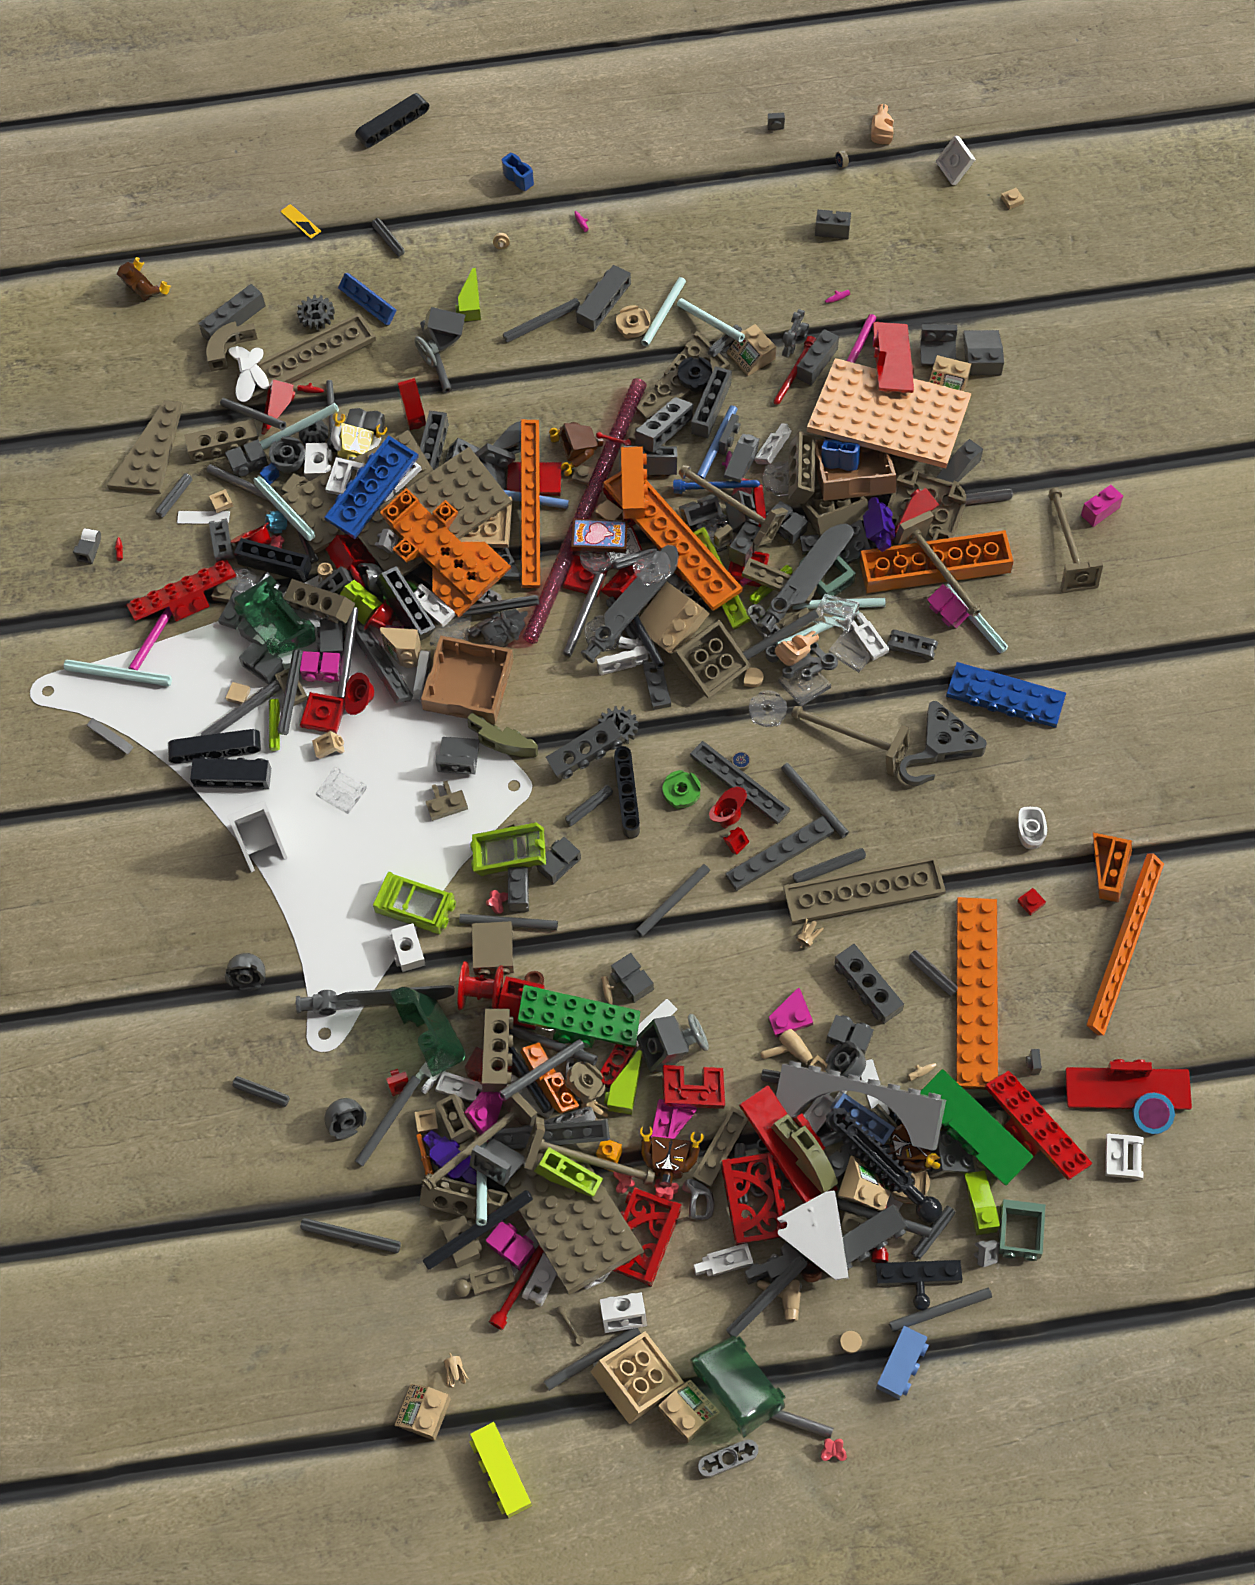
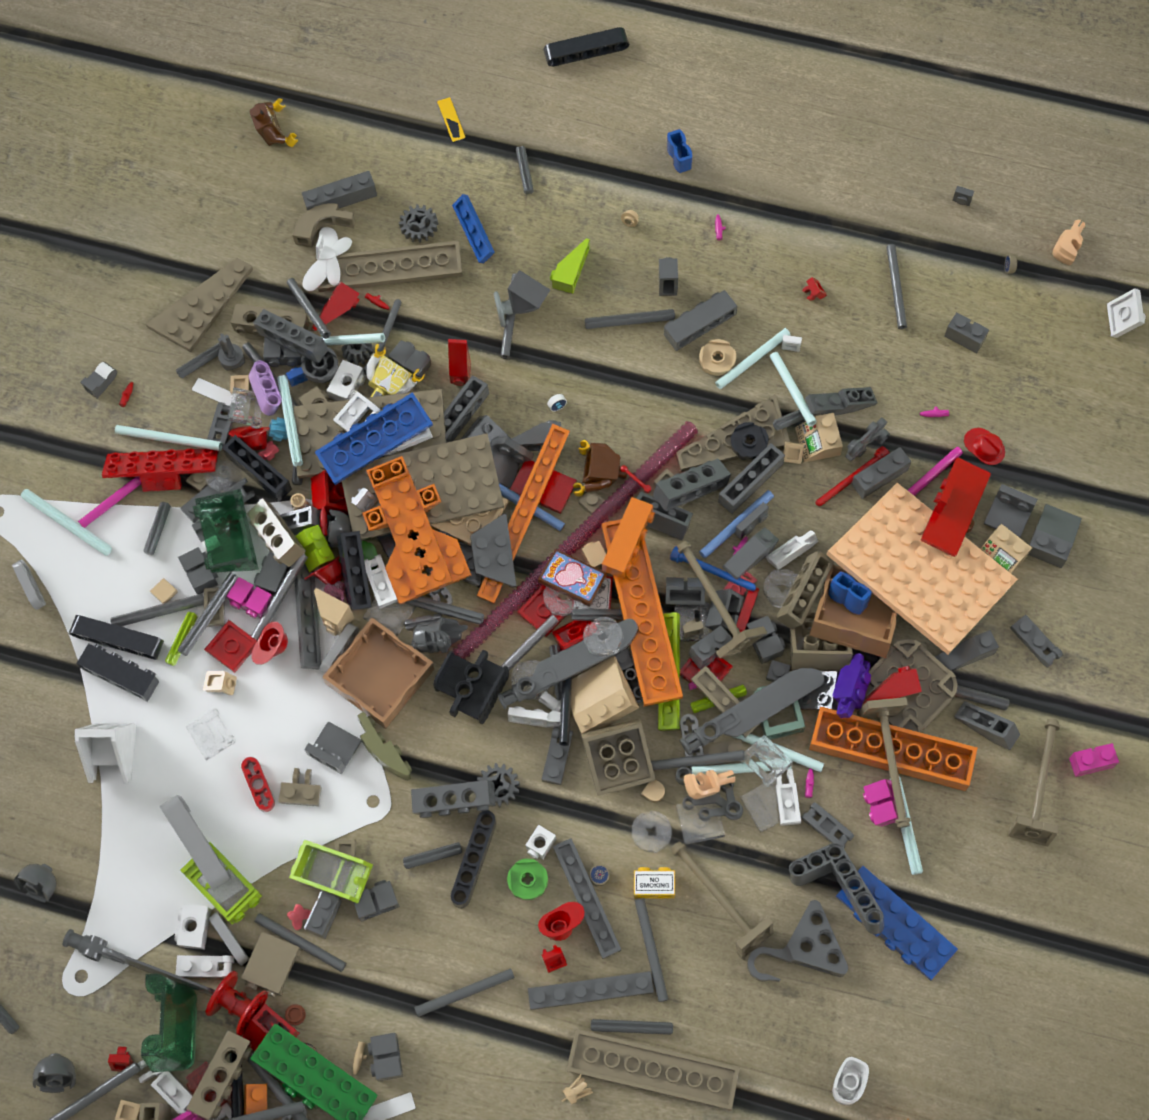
camera: 25 degrees right, 5 degrees up
(178, 567) = (167, 437): none -> light aqua piece
(200, 479) = (230, 354): none -> dark grey piece
(205, 648) = (157, 528): none -> dark grey axle
(232, 516) = (240, 408): none -> clear plate
(246, 492) = (265, 388): none -> lavender beam
(251, 438) = (290, 336): none -> dark grey brick
(375, 870) = (195, 842): none -> light grey beam
(403, 804) = (247, 773): none -> red beam
(435, 975) = (203, 966): none -> white plate
(444, 944) = (228, 938): none -> light grey beam
(512, 408) = (557, 402): none -> tile
(520, 542) = (493, 552): none -> dark grey wing
(559, 272) = (668, 276): none -> dark grey piece
(565, 655) = (480, 700): none -> black piece
(678, 748) = (540, 834): none -> white brick
(689, 237) = (815, 288): none -> red tile
(690, 286) = (791, 343): none -> white tile
(737, 369) = (793, 452): none -> tan tile
(756, 211) = (896, 286): none -> dark grey piece
(759, 314) = (841, 403): none -> dark grey slope
(791, 747) = (654, 883): none -> brick
(880, 619) = (809, 784): none -> dark pink helmet
(892, 305) = (985, 446): none -> red piece
(948, 671) = (846, 881): none -> dark grey beam
(1005, 513) = (989, 725): none -> dark grey slope
(1009, 436) = (1036, 641): none -> dark grey plate

